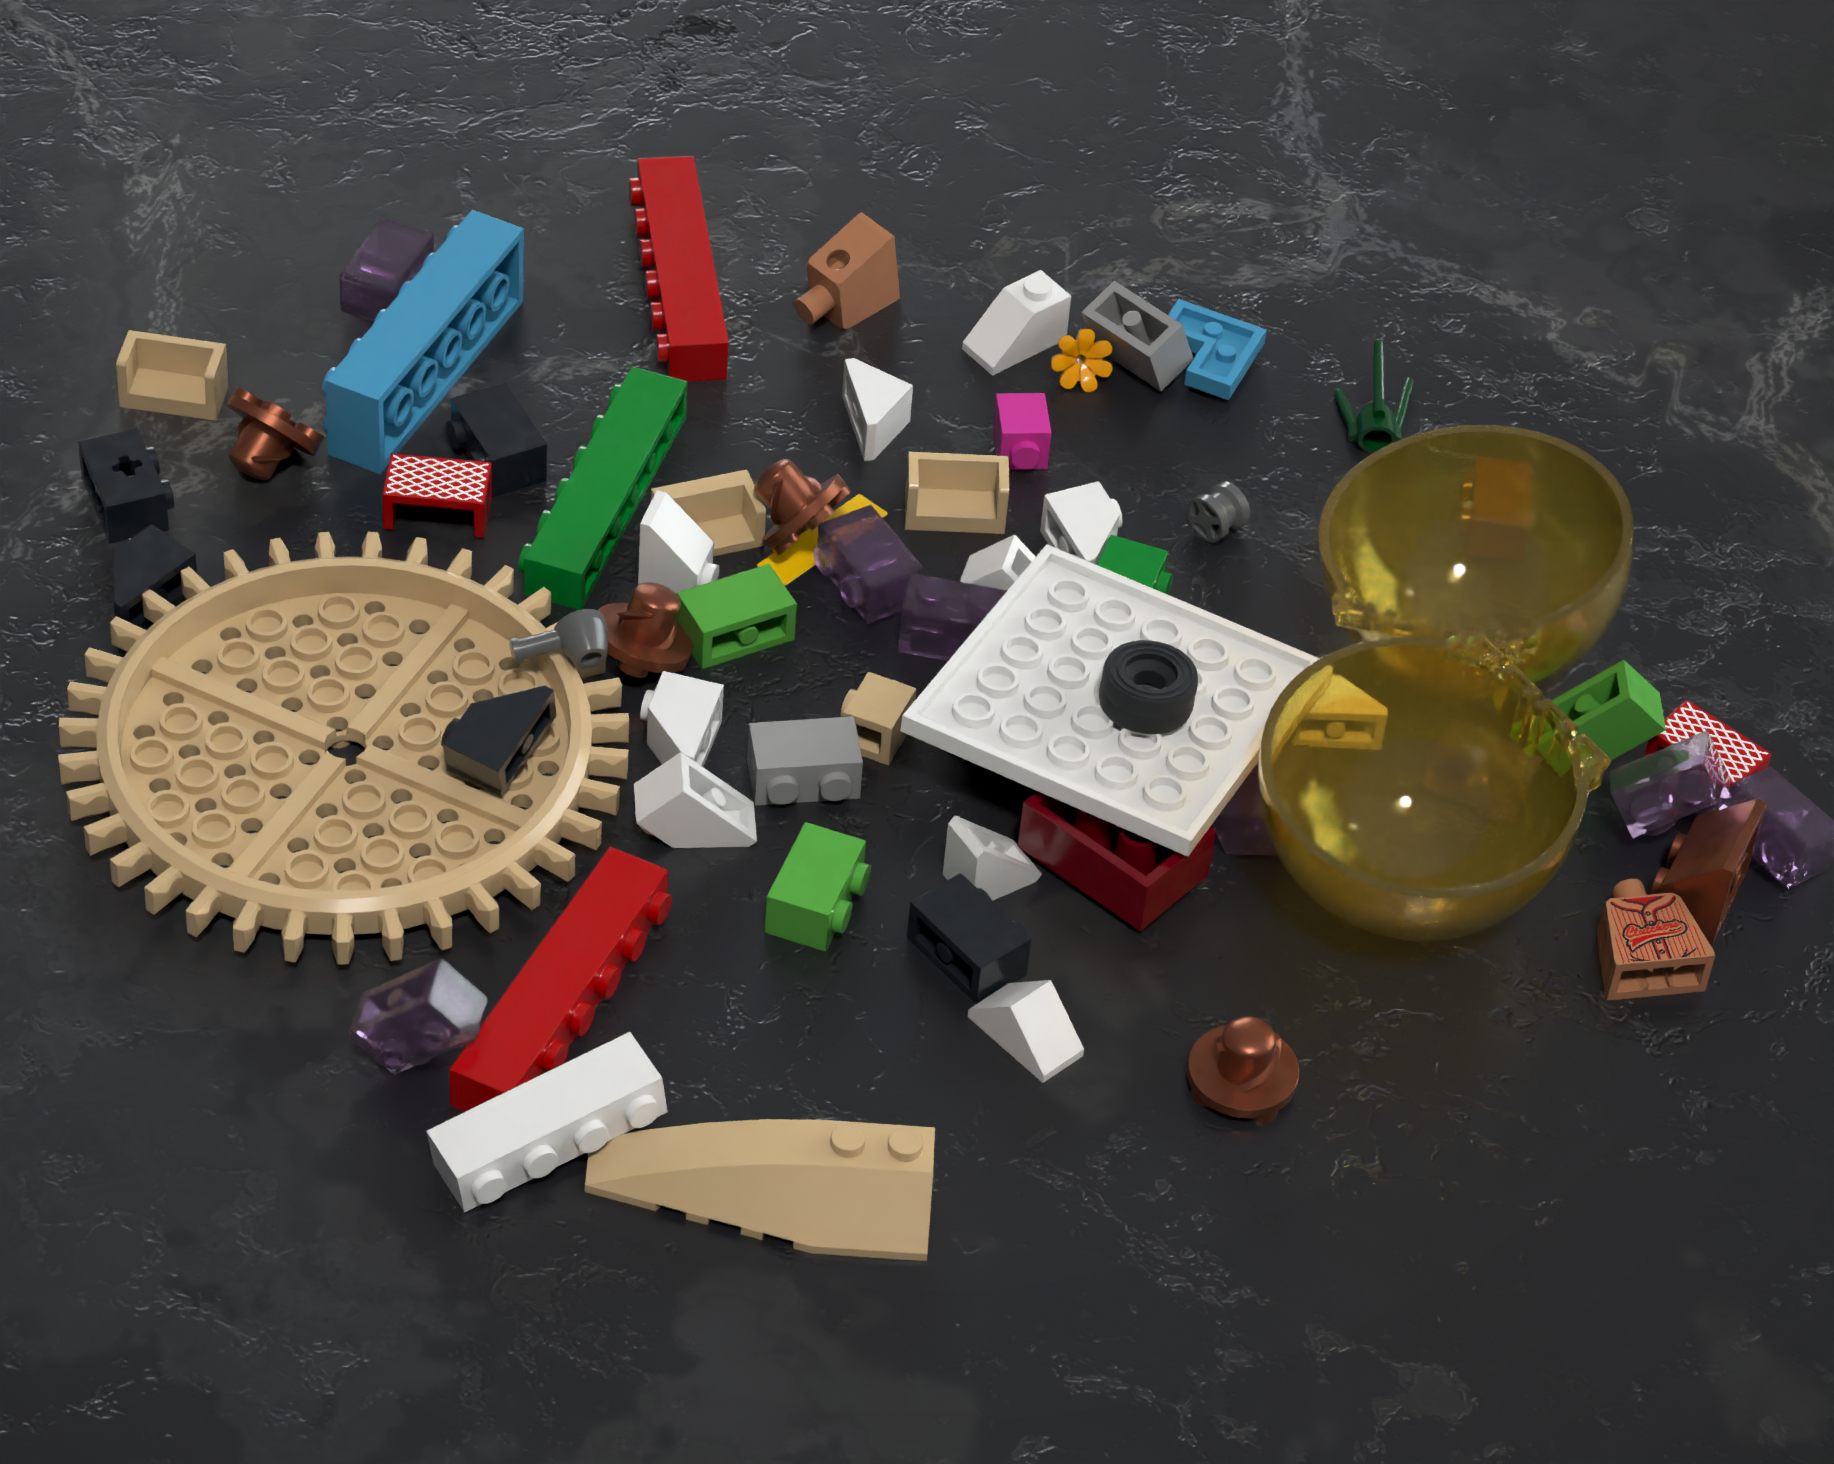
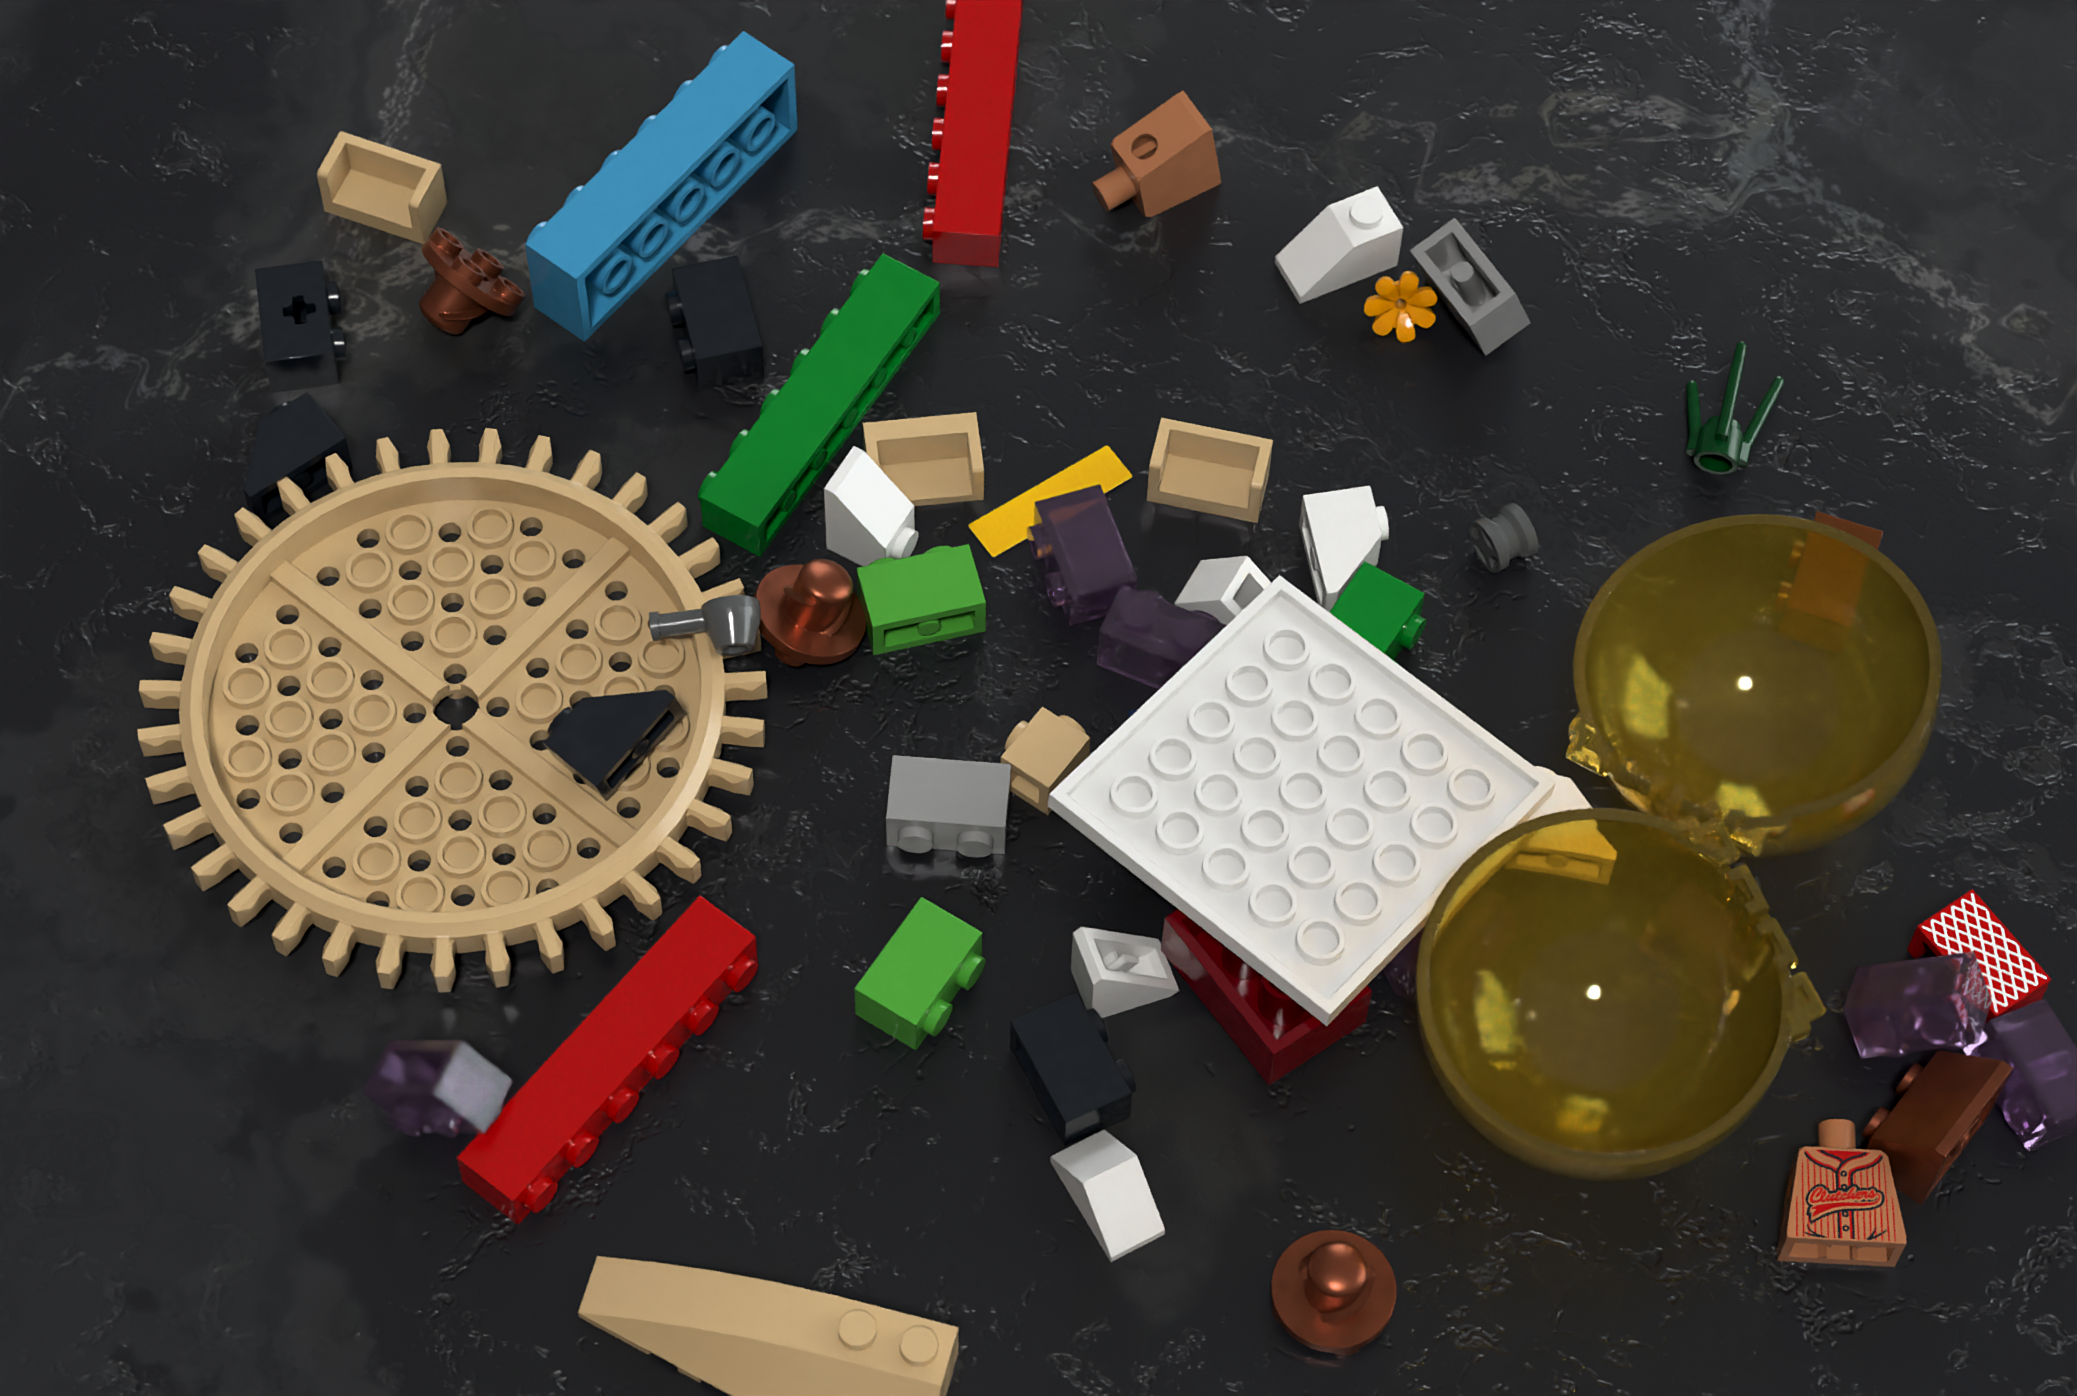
camera: 15 degrees right, 15 degrees up
(381, 266) = (644, 76): clear purple brick -> none
(438, 484) = (635, 382): red panel -> none
(547, 1122) = (548, 1238): white brick -> none
(682, 716) = (827, 736): white slope -> none
(693, 807) = (811, 849): white slope -> none
(795, 502) = (1019, 467): copper plate -> none
(876, 405) = (1153, 337): white slope -> none
(1022, 430) = (1306, 395): dark pink brick -> none
(1144, 708) = (1339, 770): black tyre -> none
(1221, 346) = (1570, 302): dark azure plate -> none
(1615, 709) = (1862, 902): bright green brick -> none

